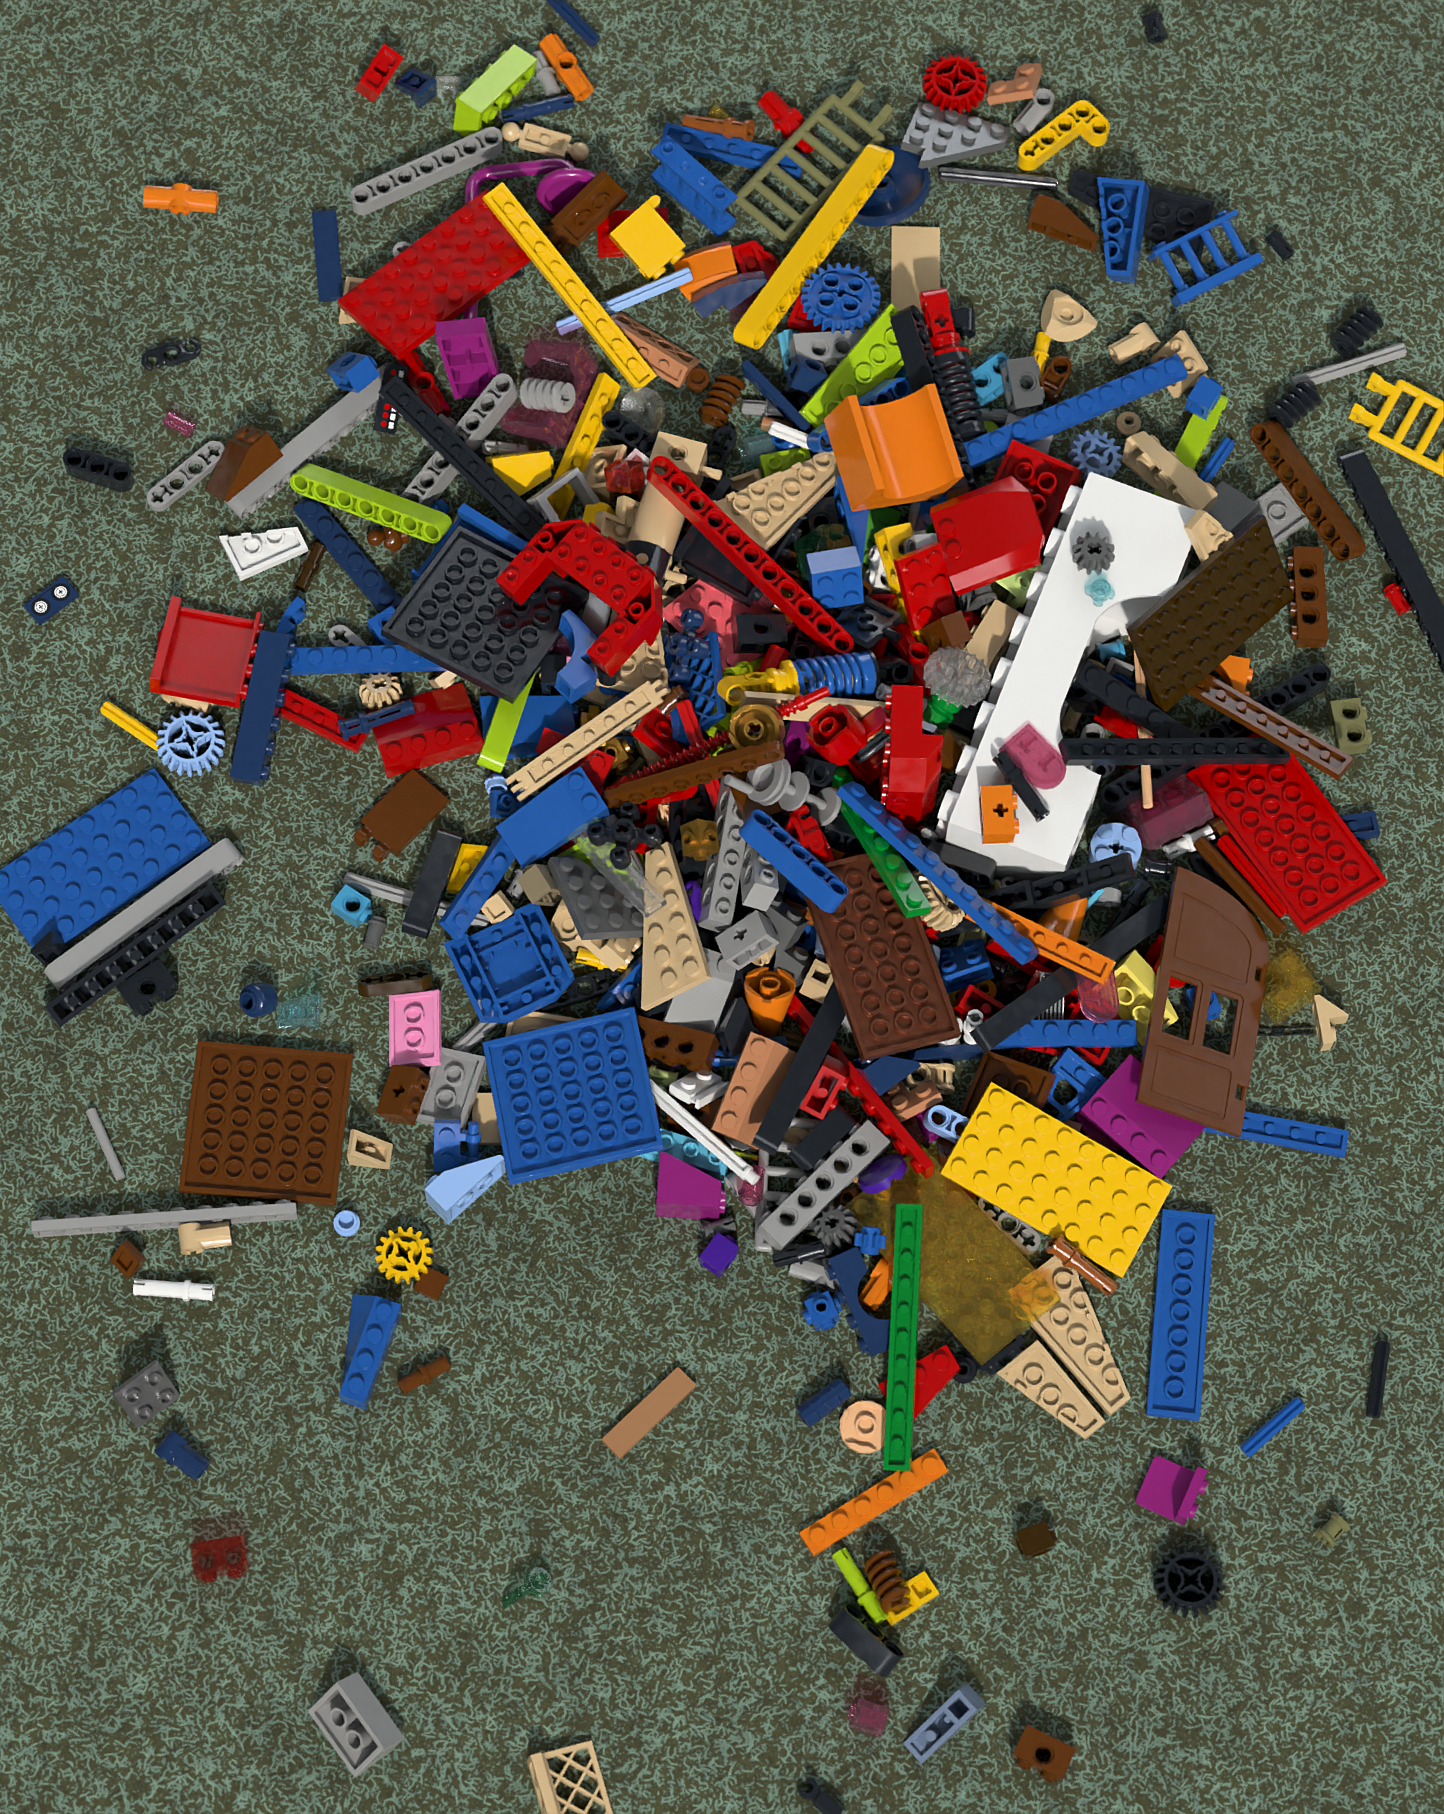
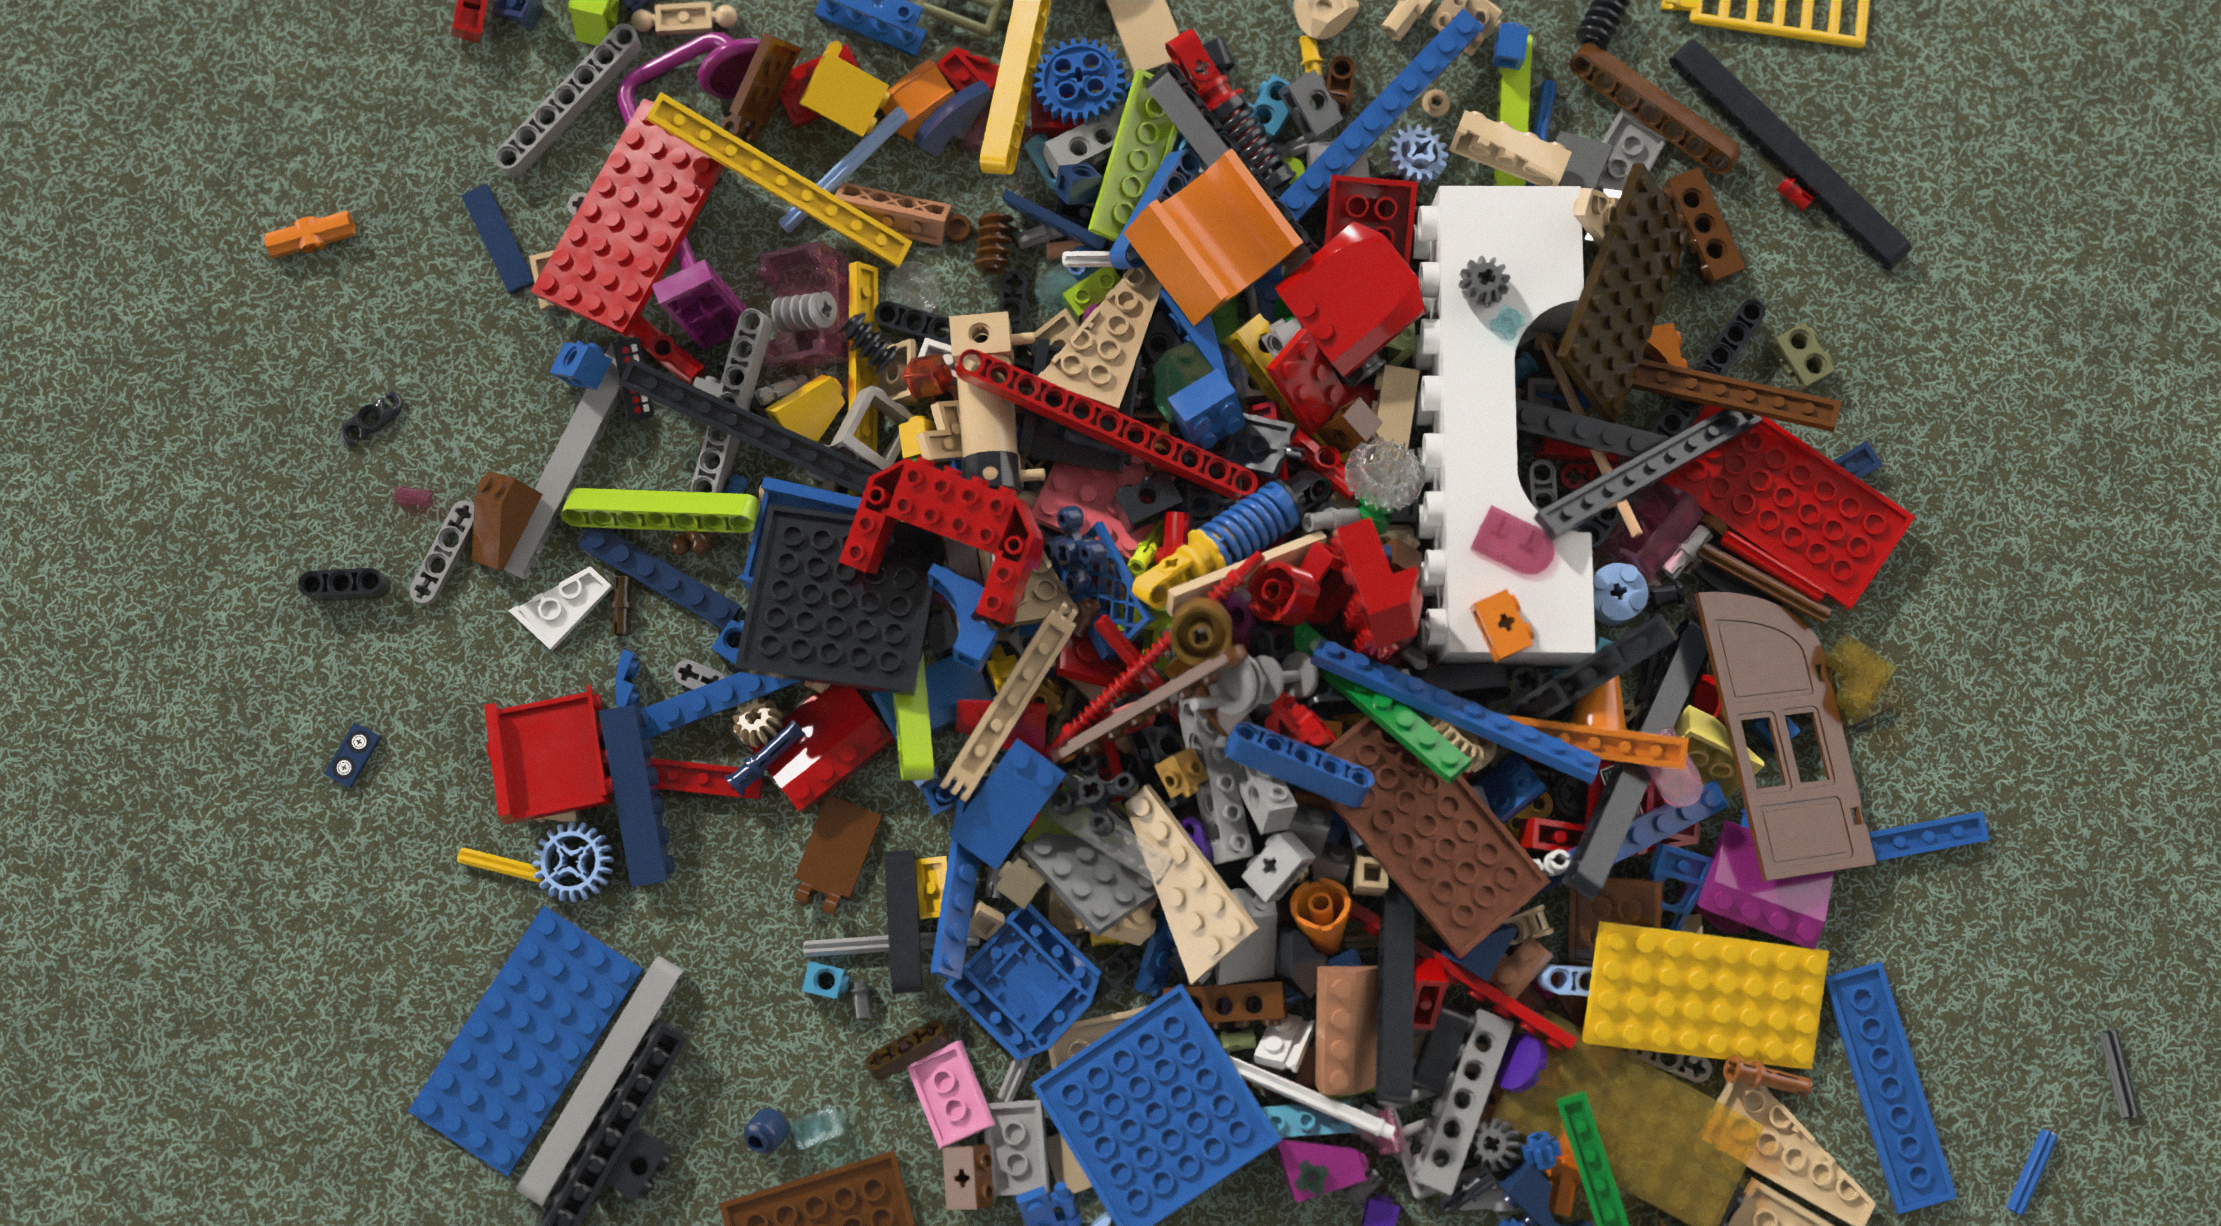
camera: 20 degrees left, 10 degrees up
(49, 948) = (512, 1162): black slope -> none
(588, 435) = (868, 342): none -> black piece
(675, 1178) = (1315, 1185): none -> plate
(1015, 778) = (1513, 582): black pin -> none
(1325, 1015) = (1904, 693): tan slope -> none

